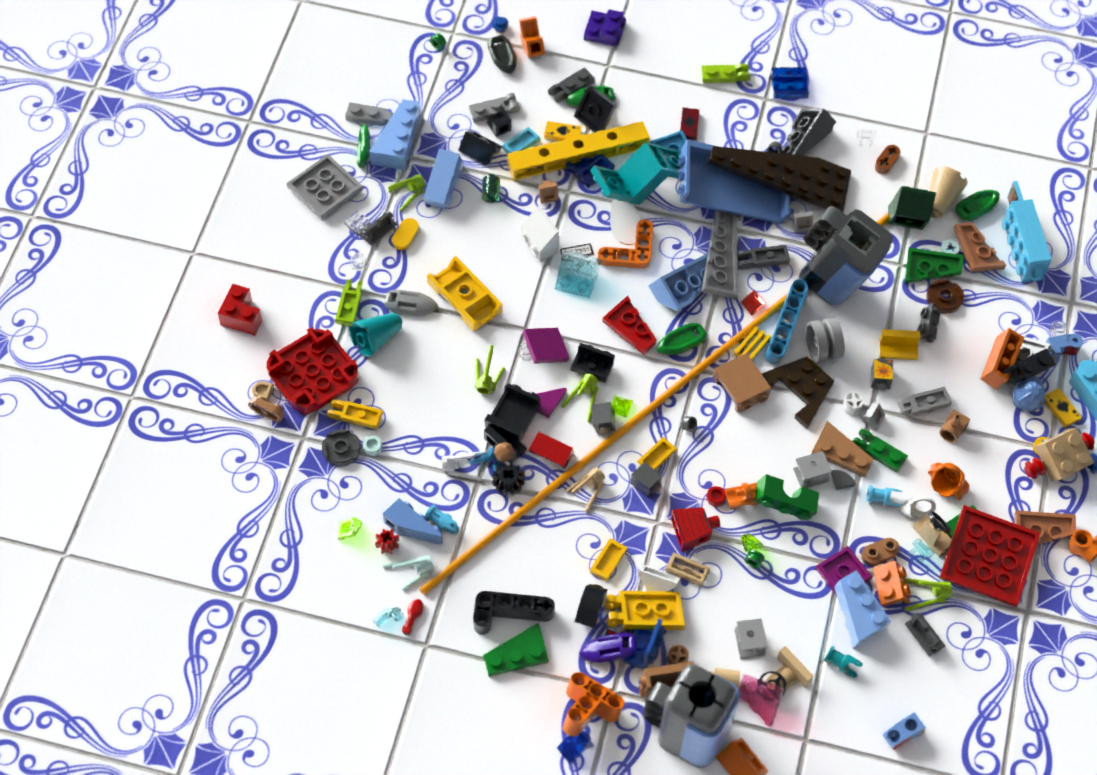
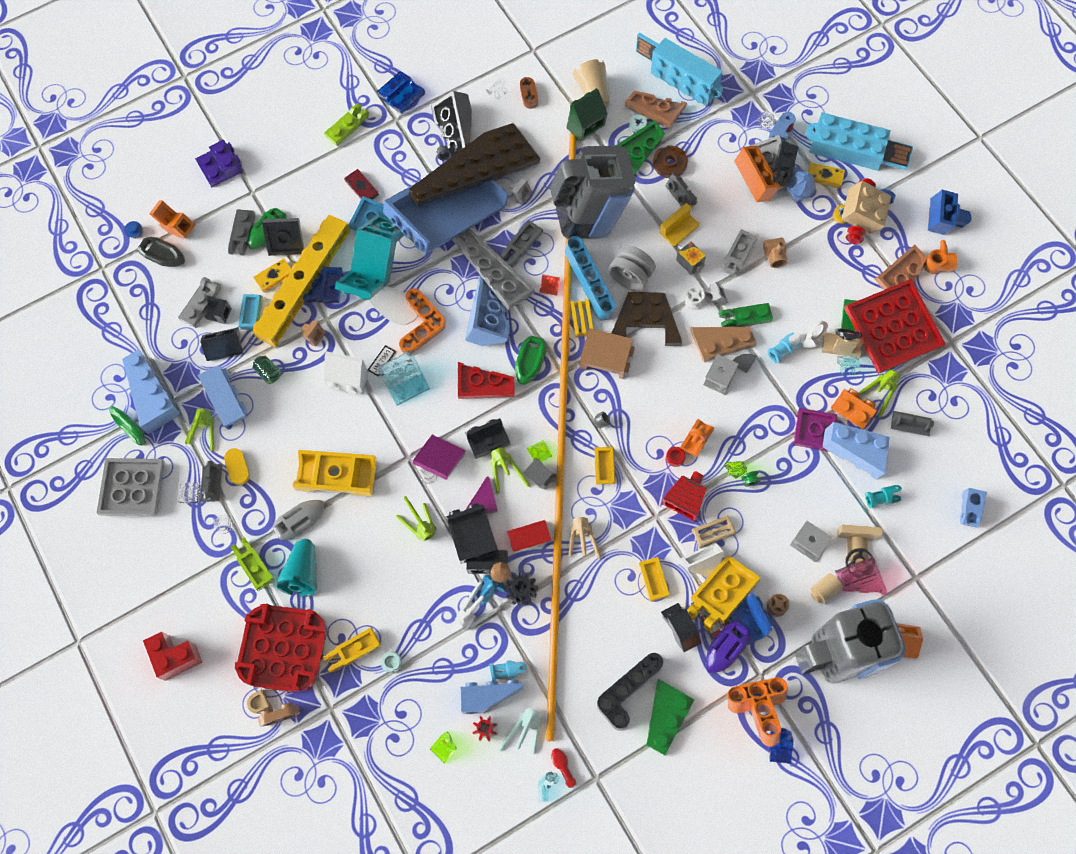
camera: 40 degrees left, 10 degrees up
(341, 447) = (369, 688): dark grey tile -> none
(367, 114) = (103, 394): light grey hinge -> none
(438, 41) = (98, 285): green bush -> none
(646, 480) = (619, 492): dark grey brick -> none
(663, 674) = (805, 614): medium nougat panel -> none
(772, 495) = (718, 419): green arch -> none
(881, 551) = (822, 389): medium nougat plate -> none
(948, 480) = (812, 296): orange hair -> none
(977, 204) = (622, 74): green piece -> none

